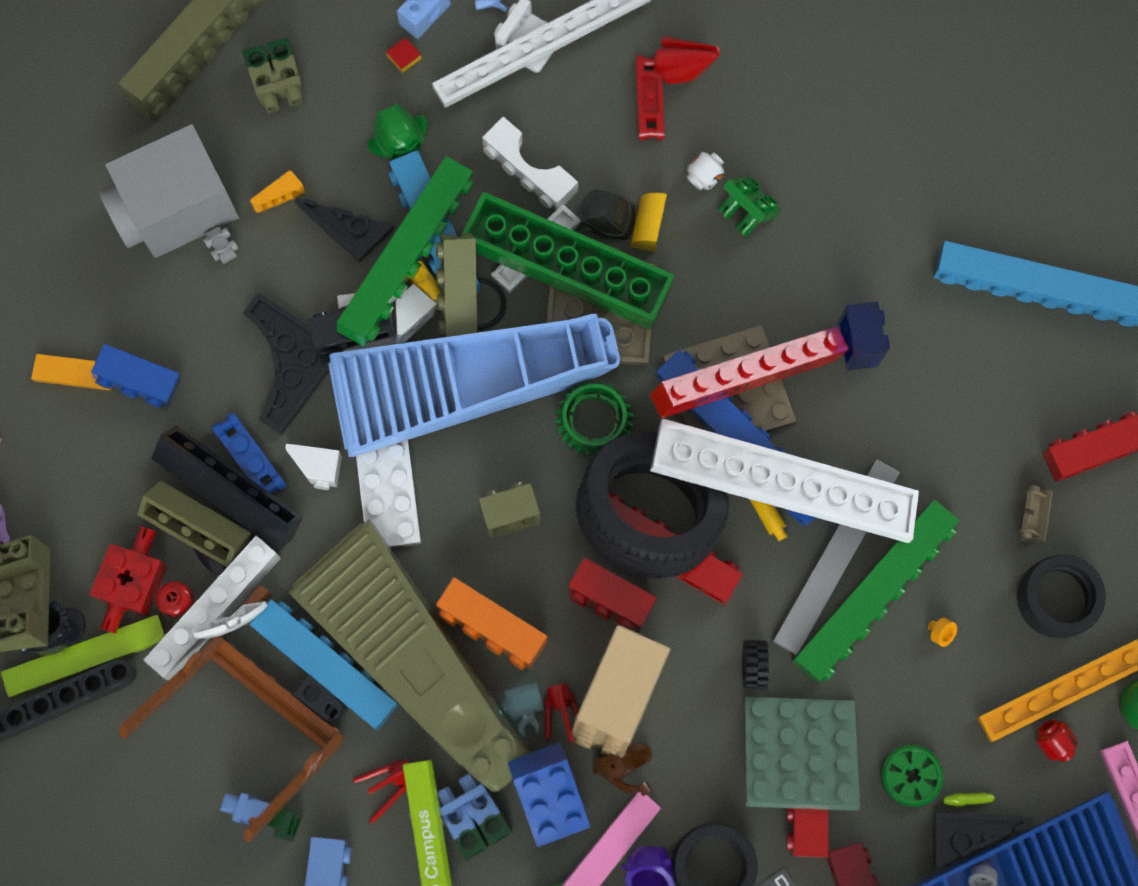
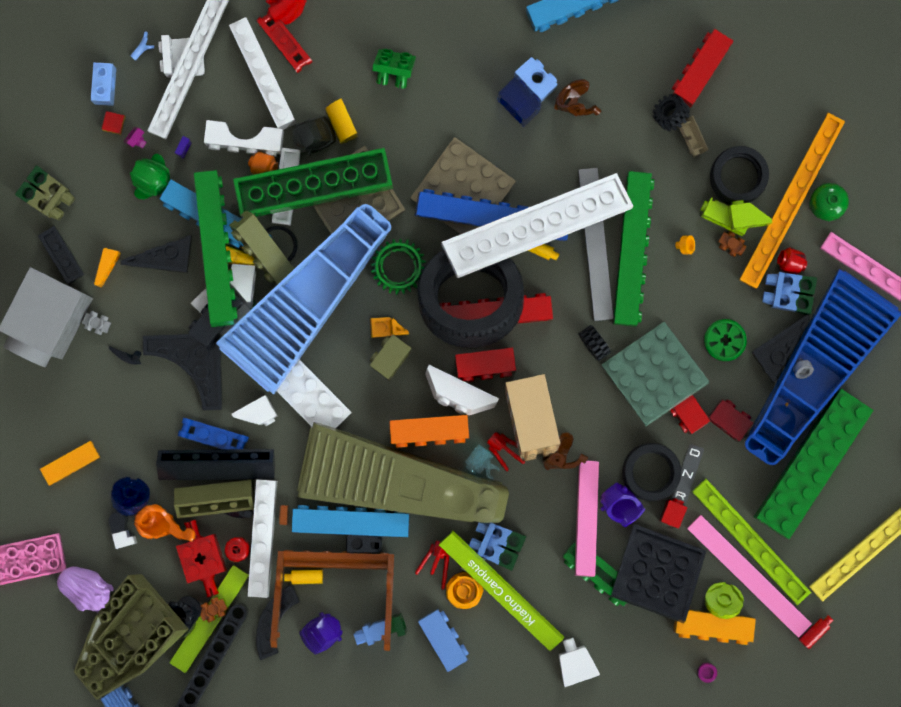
camera: 35 degrees left, 10 degrees up
(66, 484) = (120, 531): none -> leg
(100, 648) = (216, 608): none -> dark orange piece
(105, 452) = (129, 496): none -> clear blue cylinder
(111, 503) = (156, 522): none -> orange hair
(135, 376) = (111, 439): blue brick -> none
(186, 699) = (288, 599): none -> black tile
(194, 767) = (321, 633): none -> dark purple helmet
(221, 626) = (281, 539): white brick -> none
(224, 305) = (124, 356): none -> black bar
(226, 689) = (305, 577): none -> yellow cylinder
(240, 149) = (61, 255): none -> black plate
(392, 843) = (463, 591): none -> light orange hat
(413, 82) = (135, 138): none -> magenta hinge
(457, 129) = (183, 147): none -> dark purple tile
(529, 472) = (386, 327): none -> light orange slope
(530, 200) = (262, 163): none -> orange head
(548, 794) = (532, 501): blue brick -> none
(555, 606) = (457, 393): none -> white wedge
(600, 113) = (262, 74): none -> white brick
(705, 170) = (352, 64): white head -> none
(748, 372) = (470, 175): brick -> none
(905, 313) = (535, 67): none -> light blue brick
(932, 371) = (573, 92): none -> reddish brown helmet
(962, 799) = (761, 333): lime piece -> none
(997, 666) = (735, 245): none -> dark orange piece
(1012, 632) = (718, 213): none -> lime window
(1030, 776) = (784, 292): none -> medium blue hips
(1039, 647) = (746, 215): none -> lime slope
(1040, 466) = (665, 106): none -> black tyre

